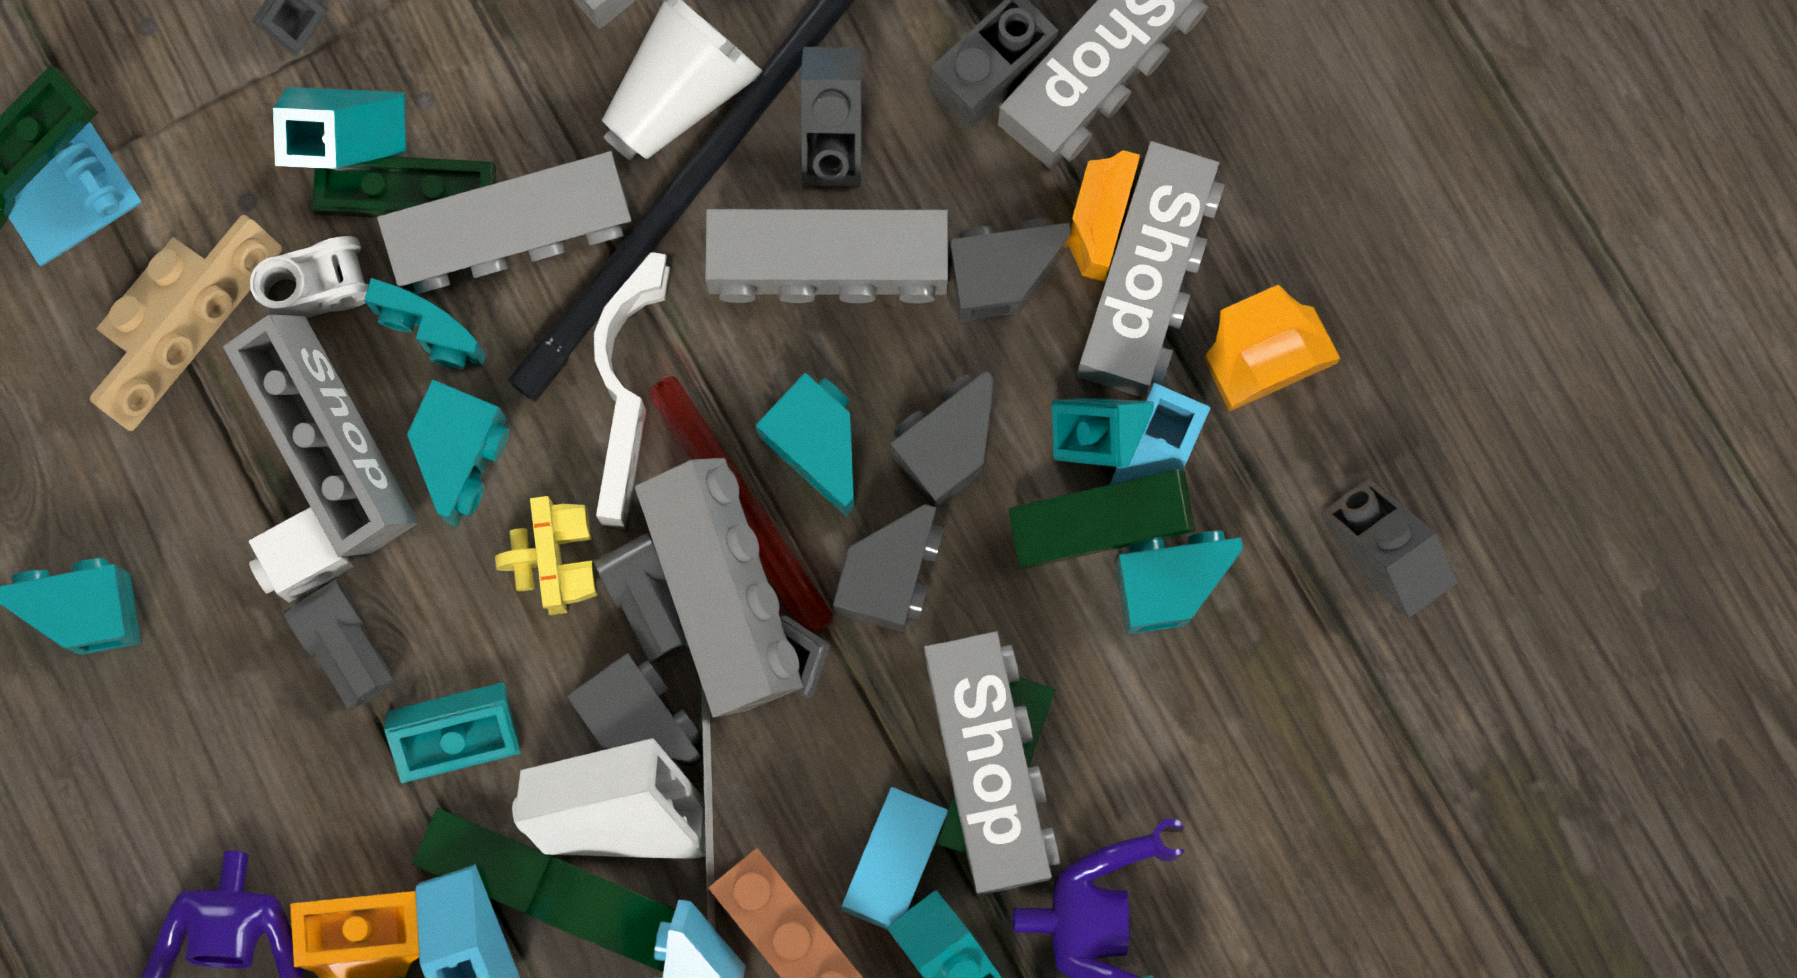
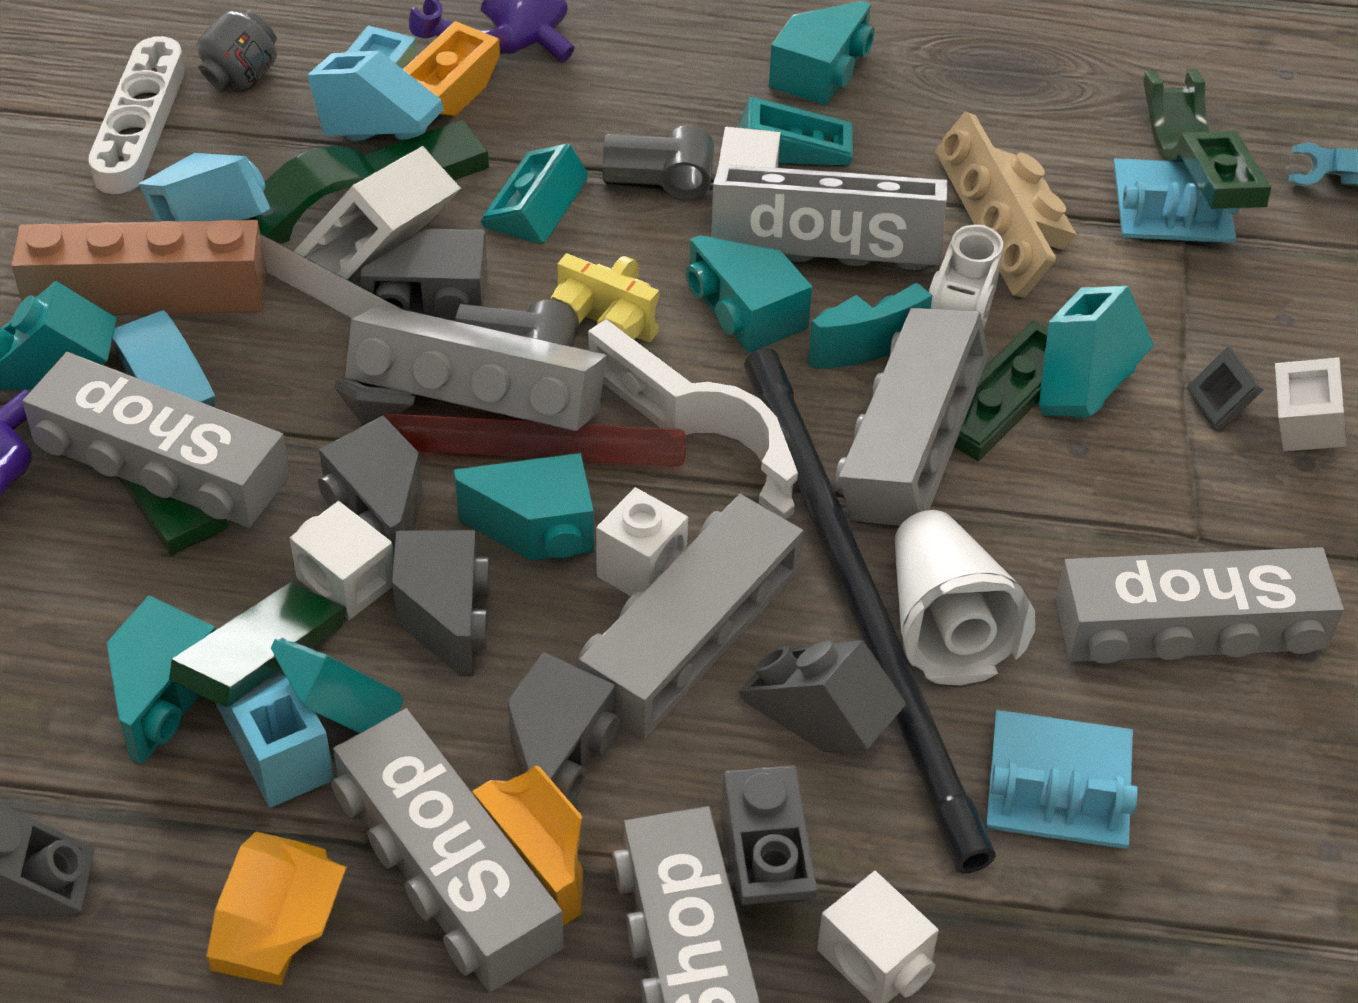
camera: 125 degrees right, 30 degrees down
(231, 591) = (801, 133): none -> teal slope
(797, 328) = (638, 541): none -> white brick
(974, 540) = (343, 558): none -> white brick

